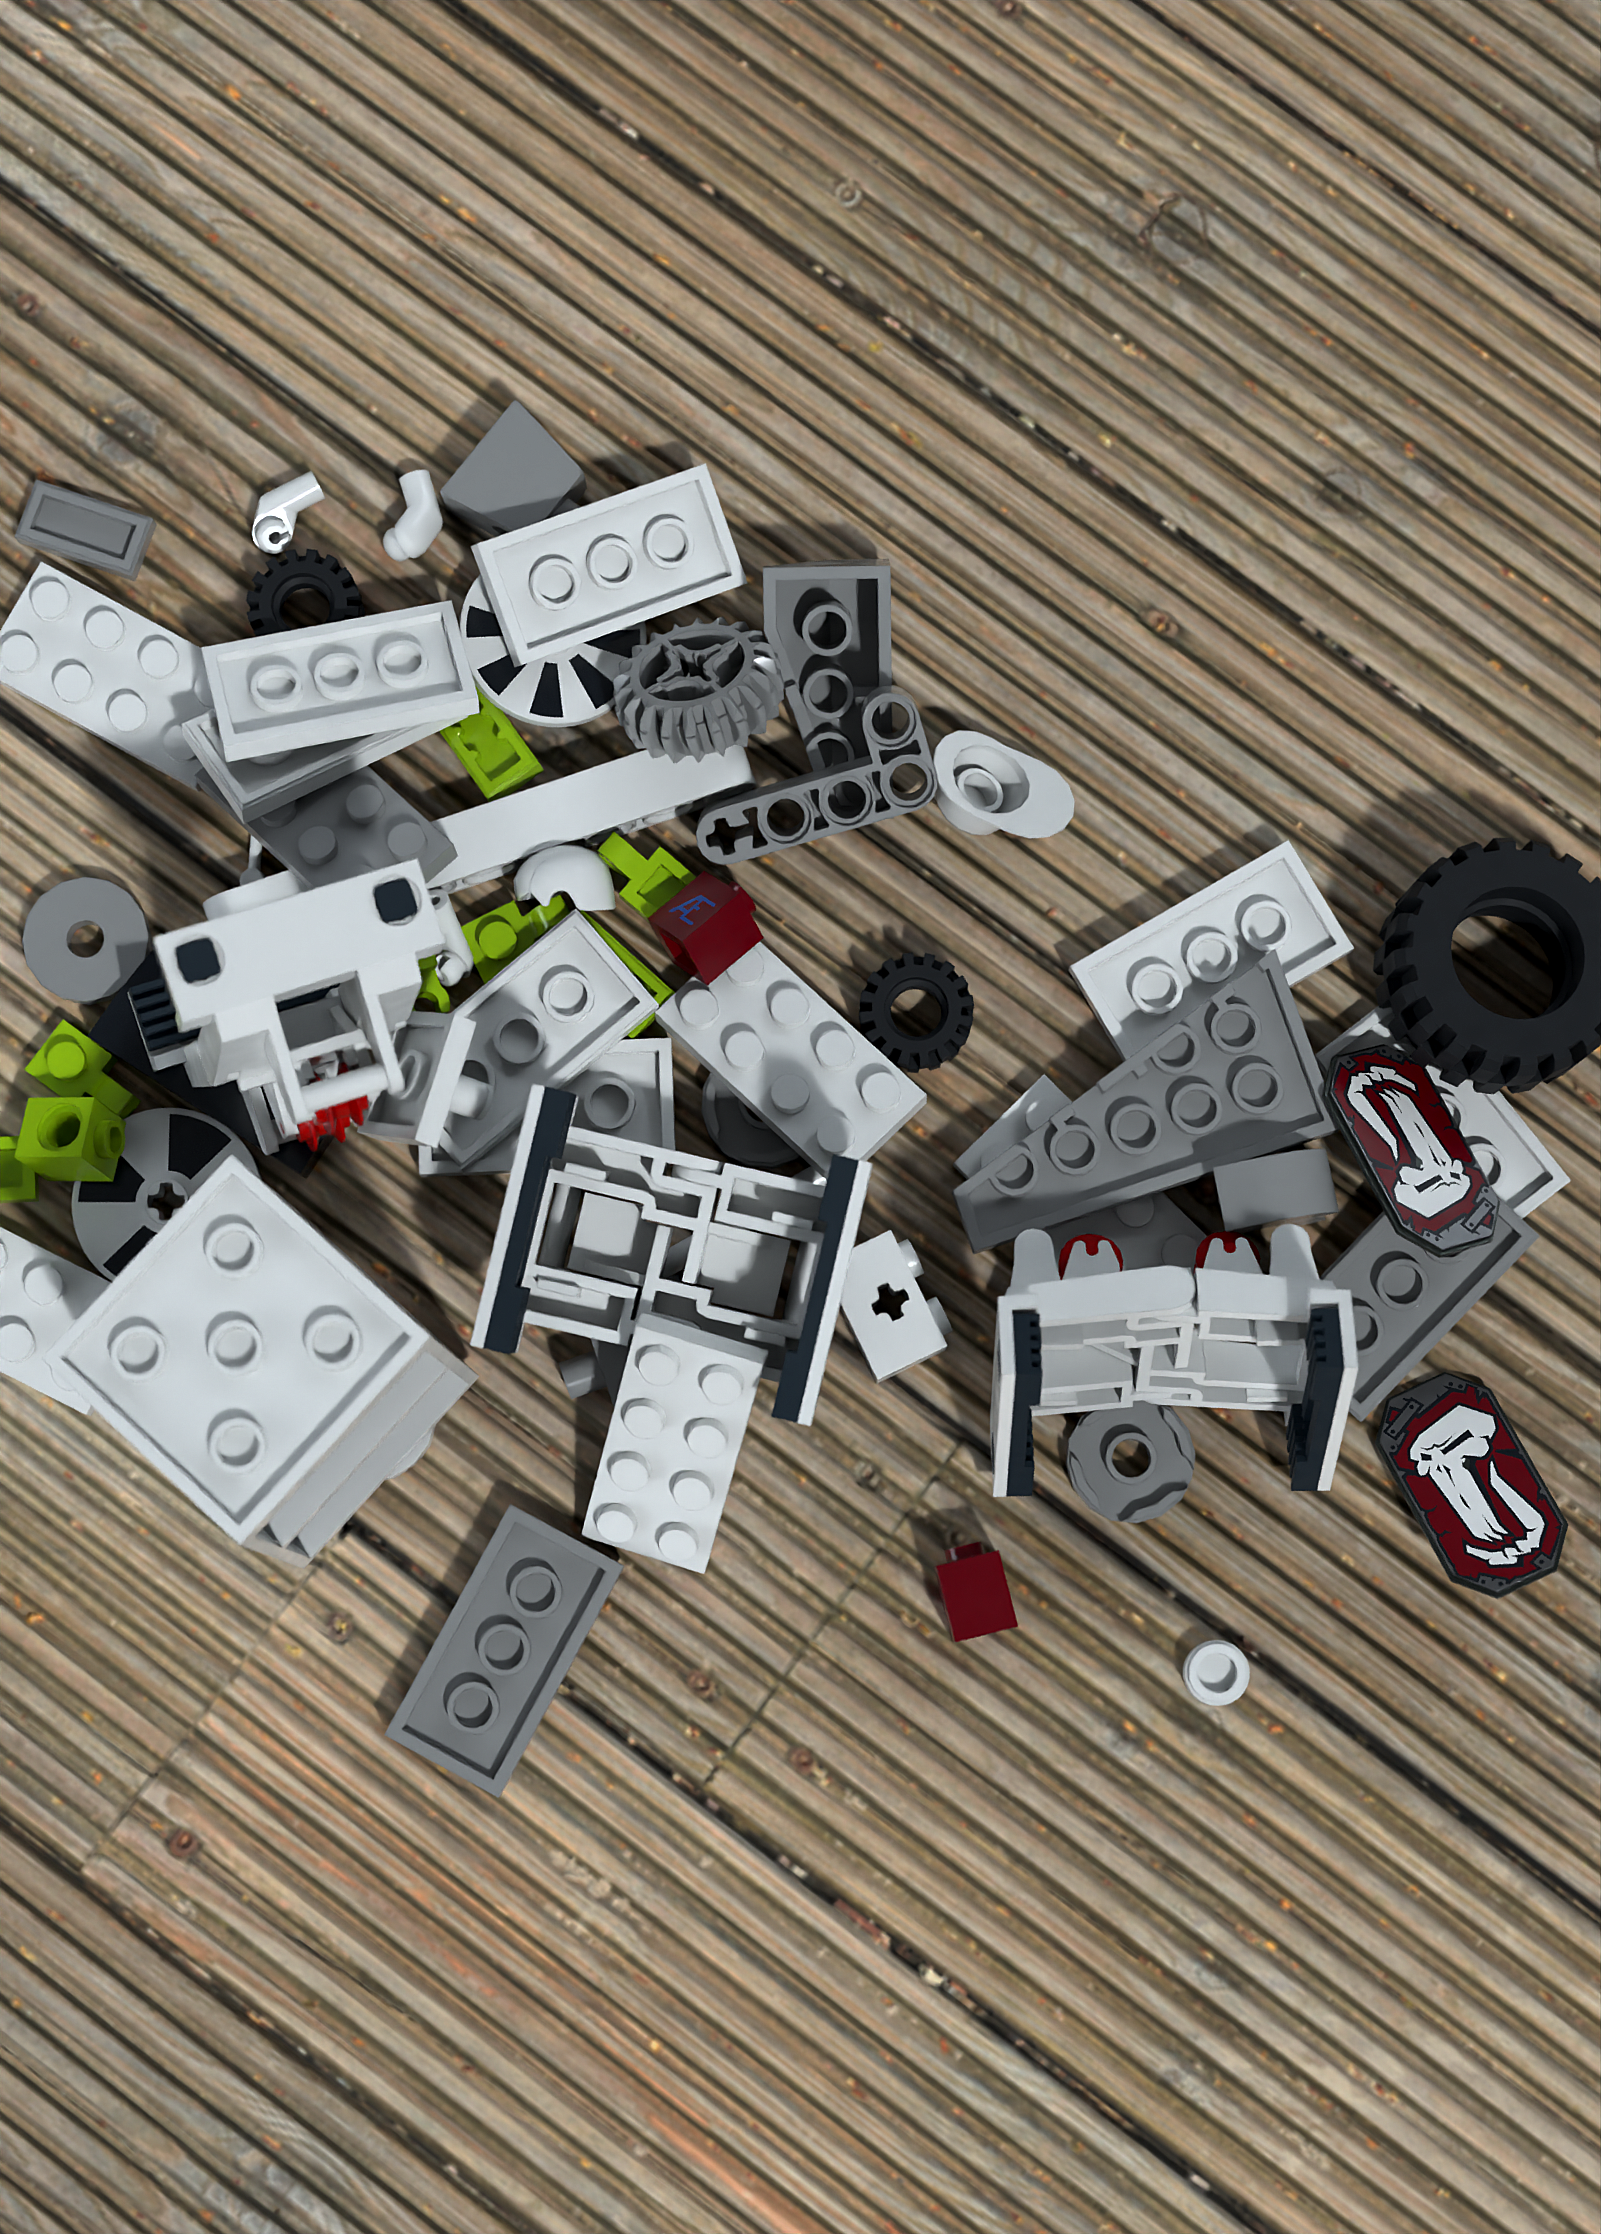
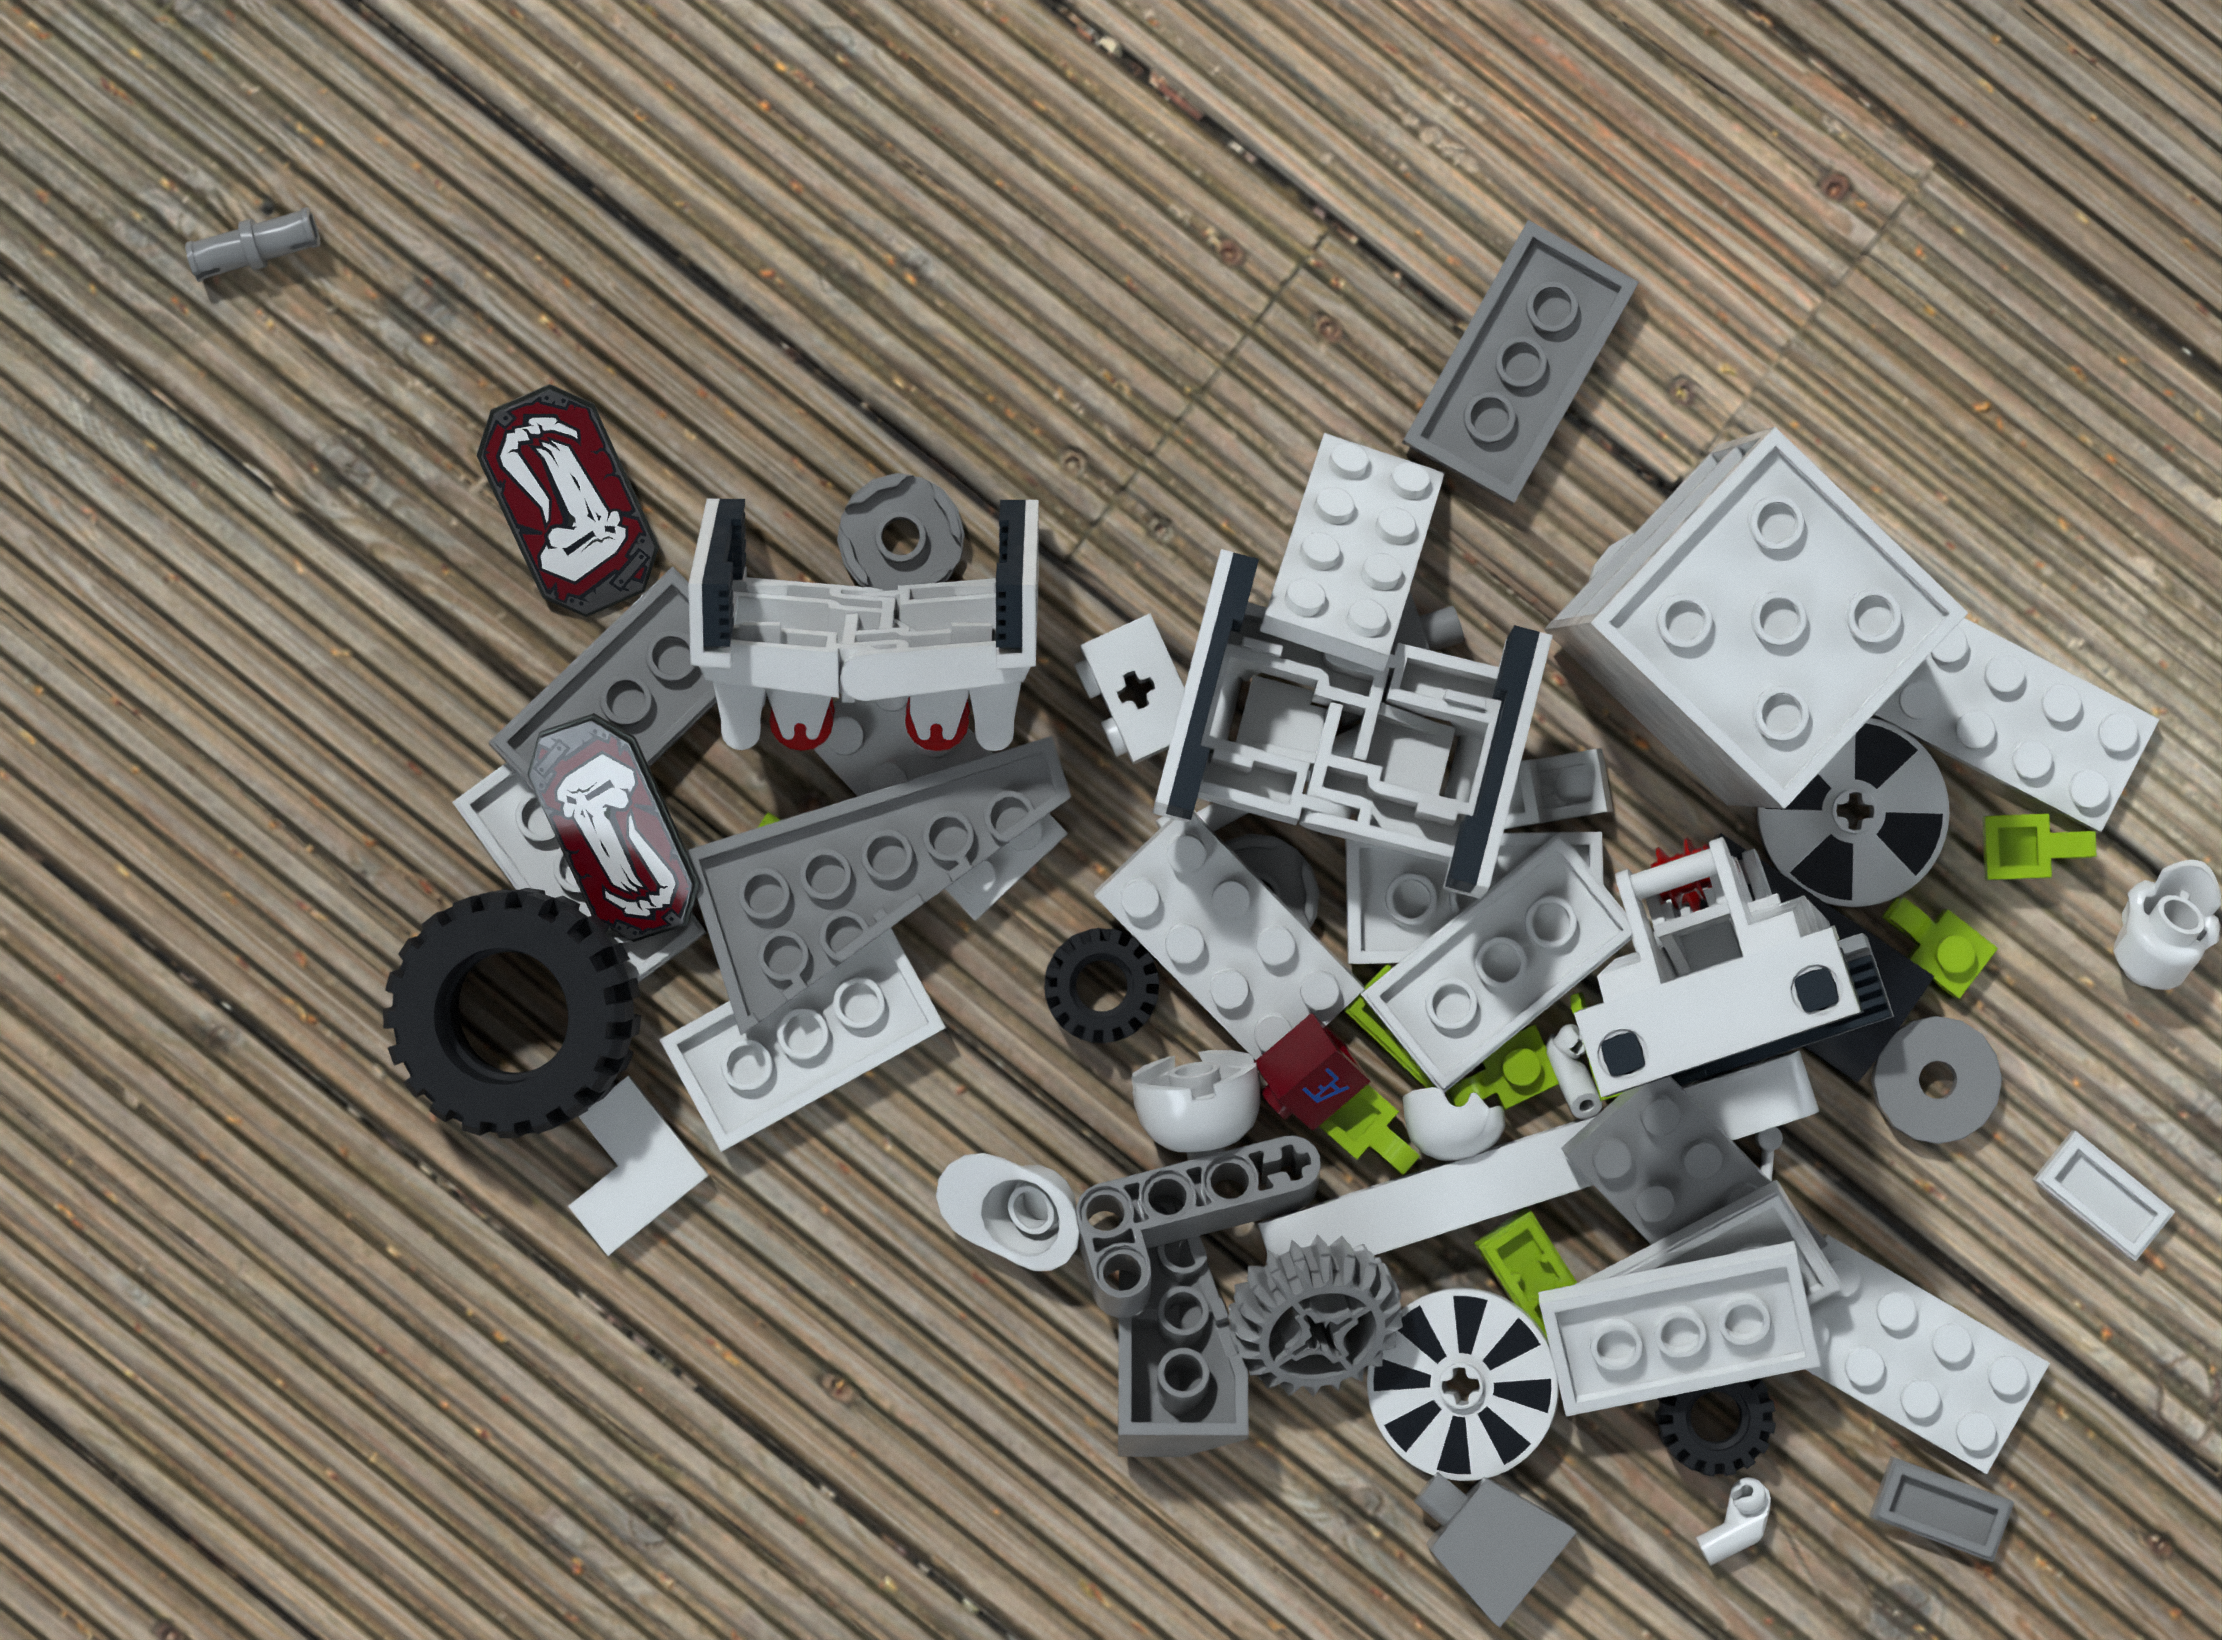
camera: 175 degrees right, 5 degrees up
(71, 1139) = (1970, 878): lime brick -> none
(420, 521) = (1598, 1507): white arm -> none
(431, 1064) = (1588, 910): white tile -> none
(458, 1219) = (1560, 789): none -> white slope
(609, 565) = (1404, 1449): white plate -> none
(818, 896) = (1199, 1103): none -> white cylinder
(974, 1592) = (1059, 406): dark red brick -> none
(1216, 1672) = (824, 327): white tile -> none
(1276, 1190) = (750, 789): light grey brick -> none
(1356, 823) = (650, 1172): none -> white tile

